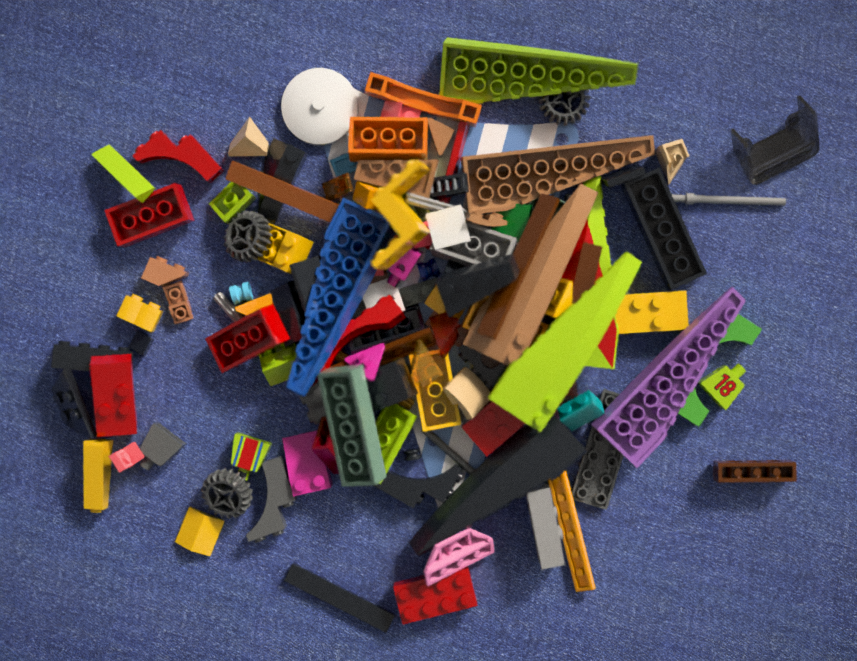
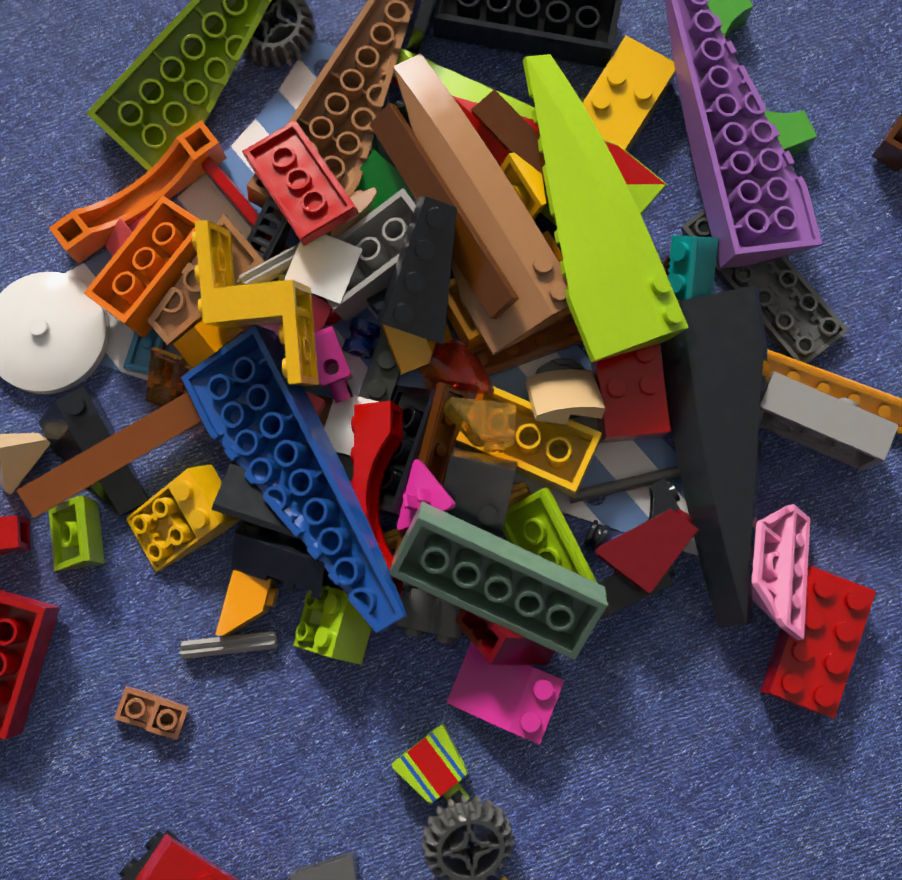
camera: 50 degrees left, 10 degrees down
(140, 313) = (123, 779): yellow brick -> none
(141, 343) = (167, 809): black slope -> none
(161, 273) = (94, 705): nougat slope -> none
(240, 293) = (203, 615): medium azure wheel -> none
(243, 235) = (134, 546): dark grey gear -> none
(247, 338) = (269, 645): red brick -> none
(278, 494) = (521, 764): dark grey arch -> none
(339, 597) = (730, 786): black tile -> none
(420, 485) = (649, 549): none -> dark red slope
(441, 135) = (199, 201): medium nougat slope -> none
(481, 184) = (300, 183): none -> tile
(491, 375) = (565, 352): black arch -> none
(723, 385) = (782, 76): lime torso -> none

